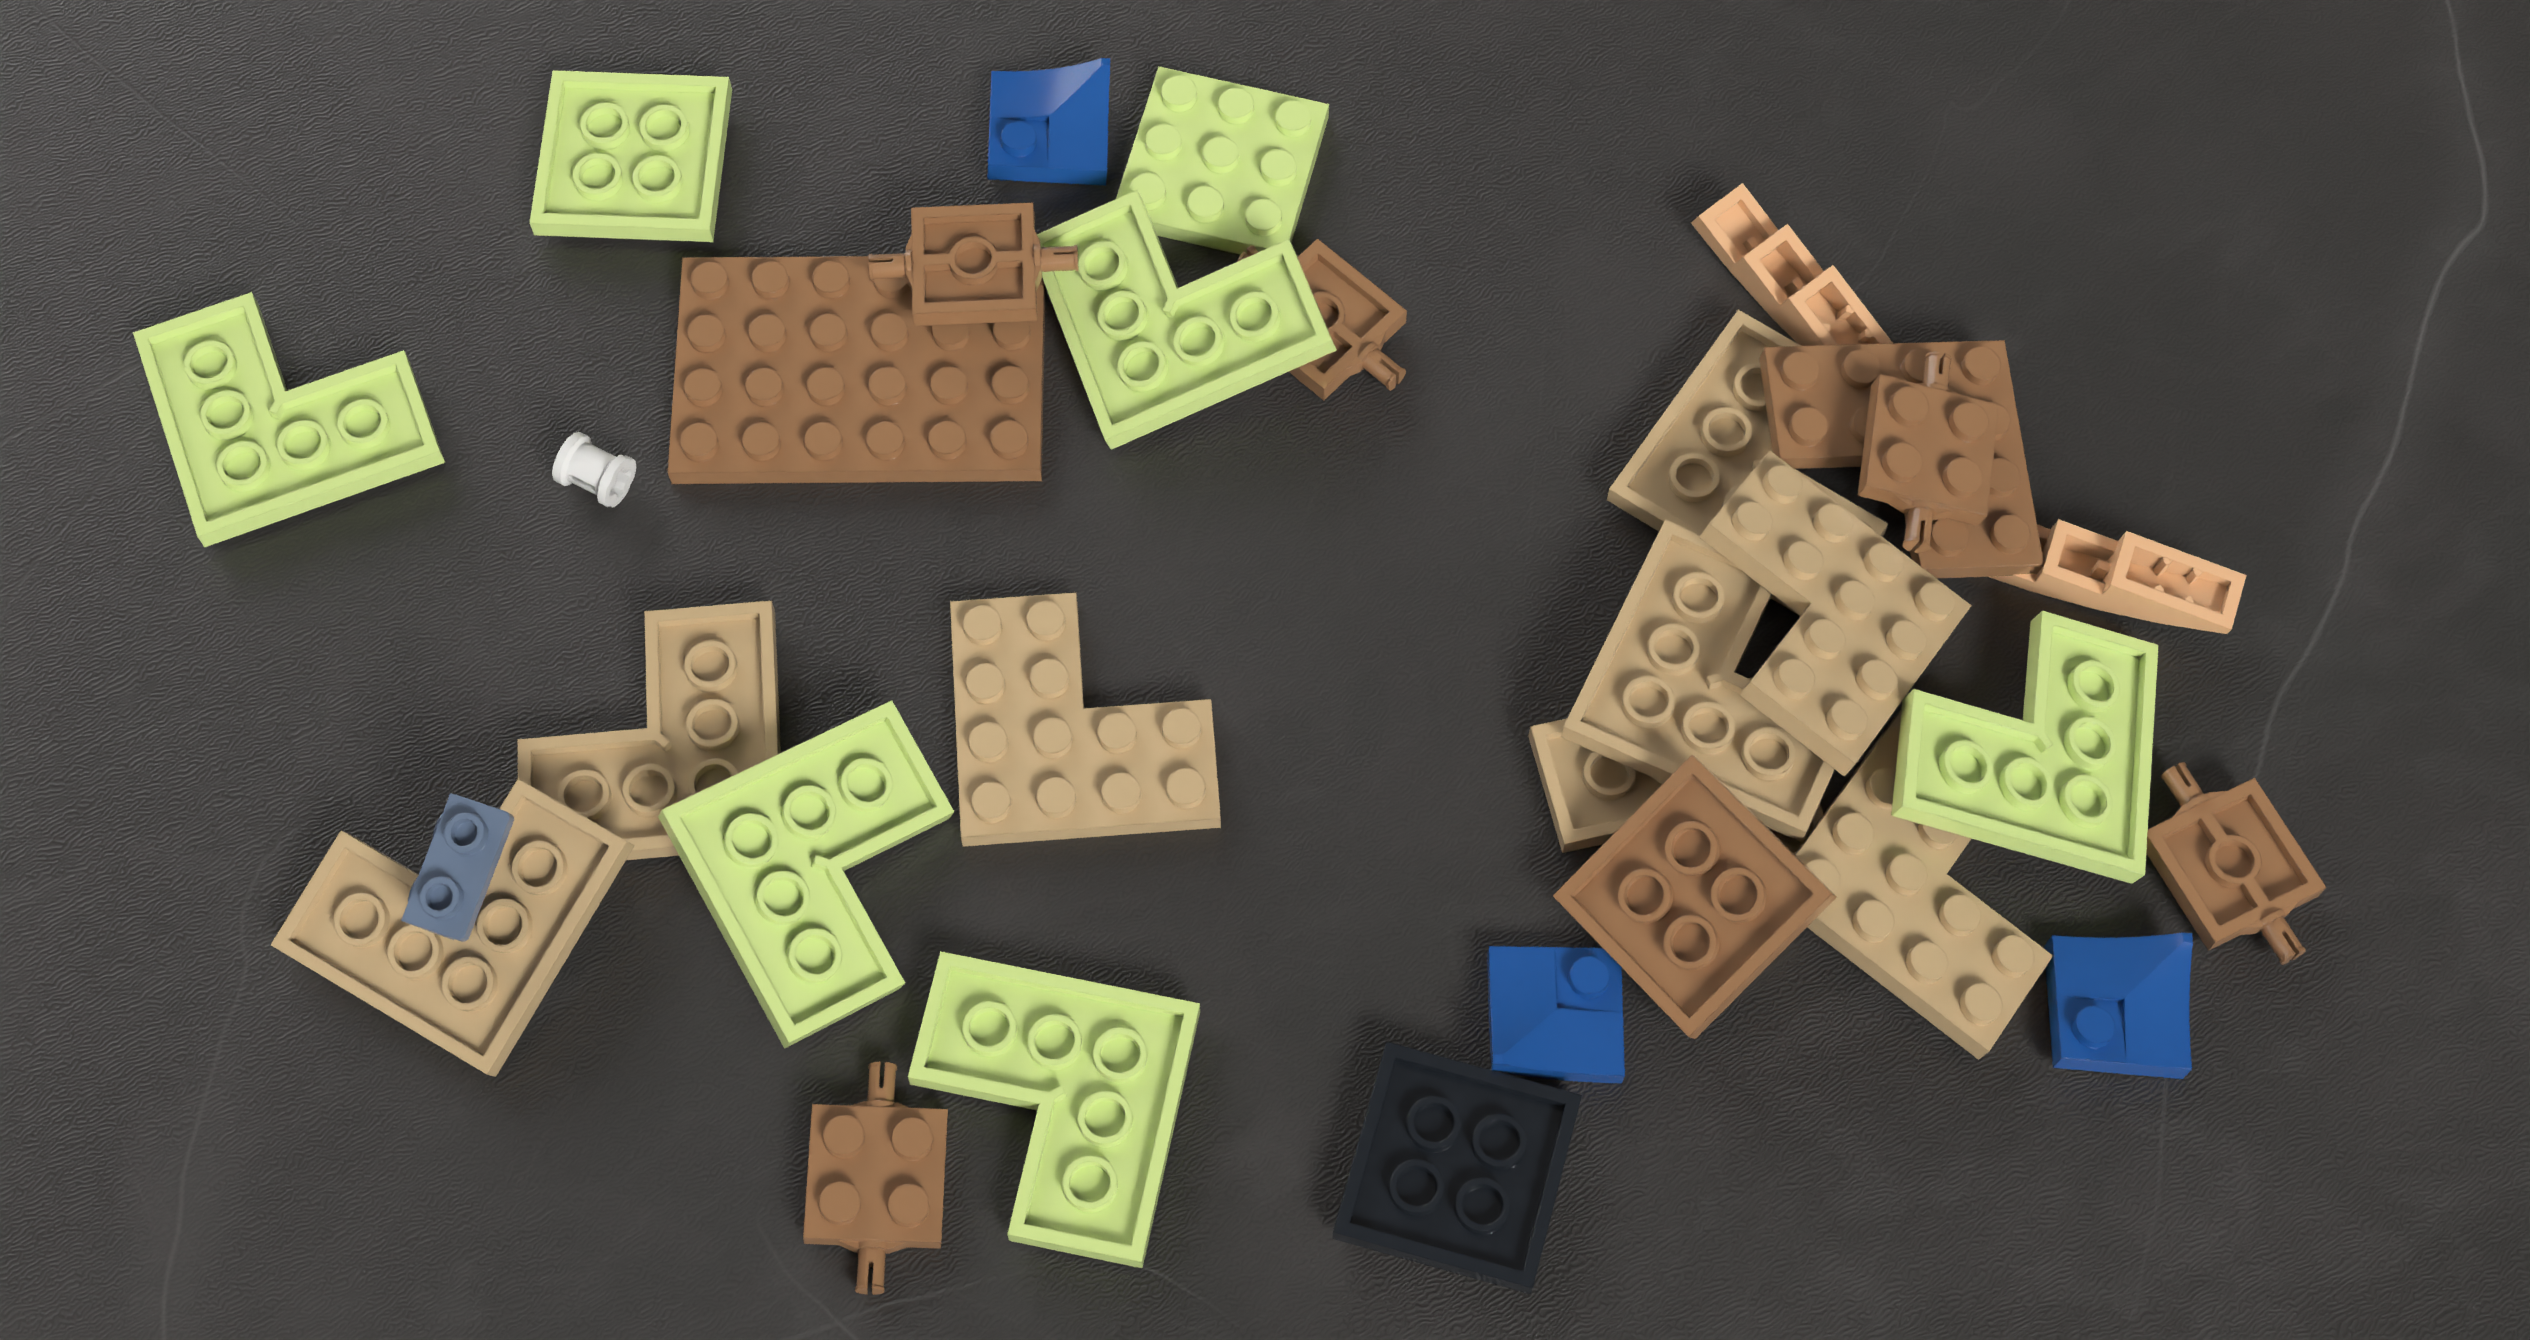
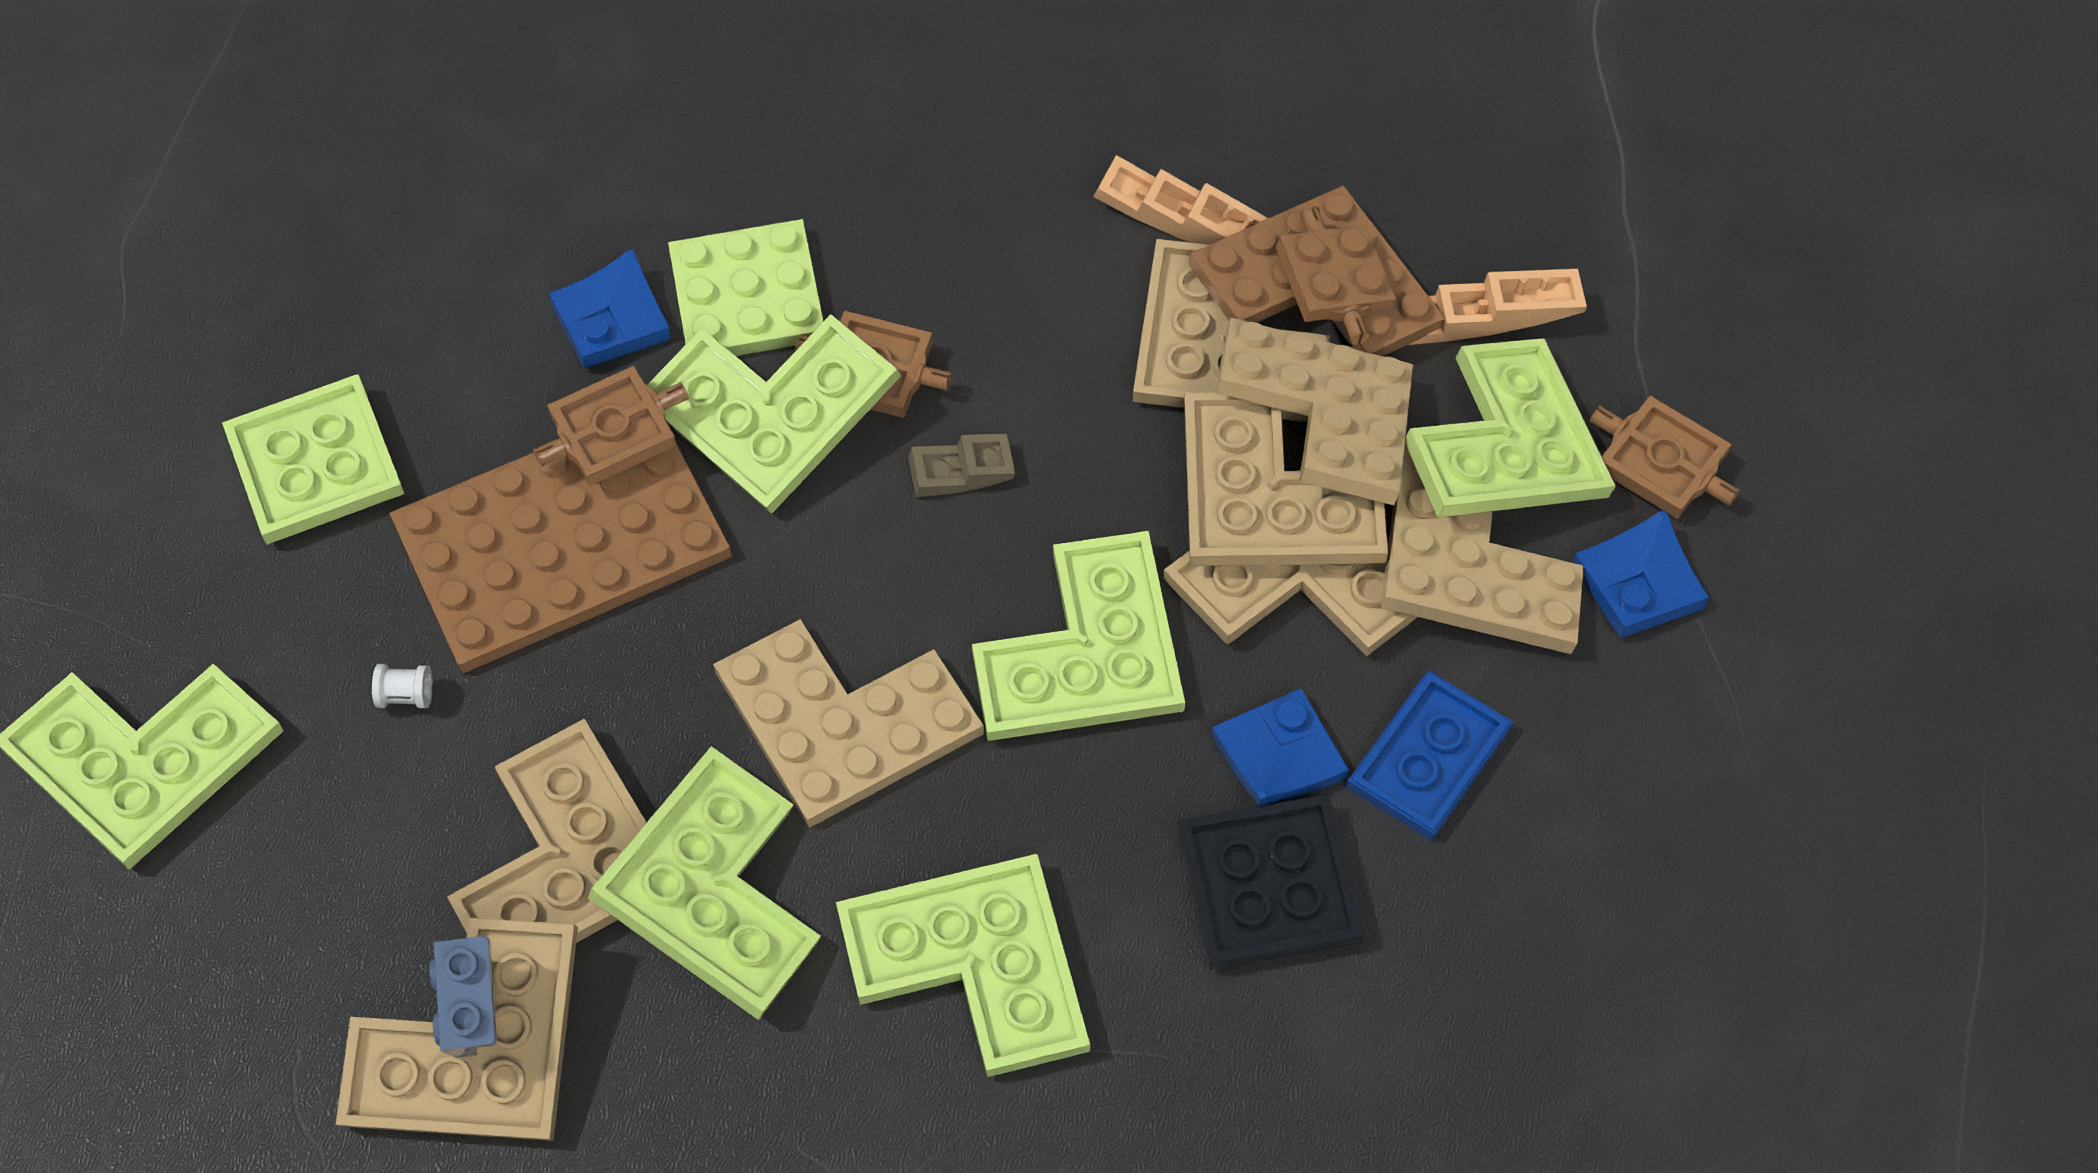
camera: 25 degrees left, 5 degrees down
(875, 1177) = (870, 1078): medium nougat plate -> none
(1359, 491) = (970, 465): none -> dark tan slope
(1396, 813) = (1108, 662): none -> yellowish green plate
(1694, 897) = (1336, 627): medium nougat plate -> none
(1736, 1103) = (1429, 755): none -> blue tile

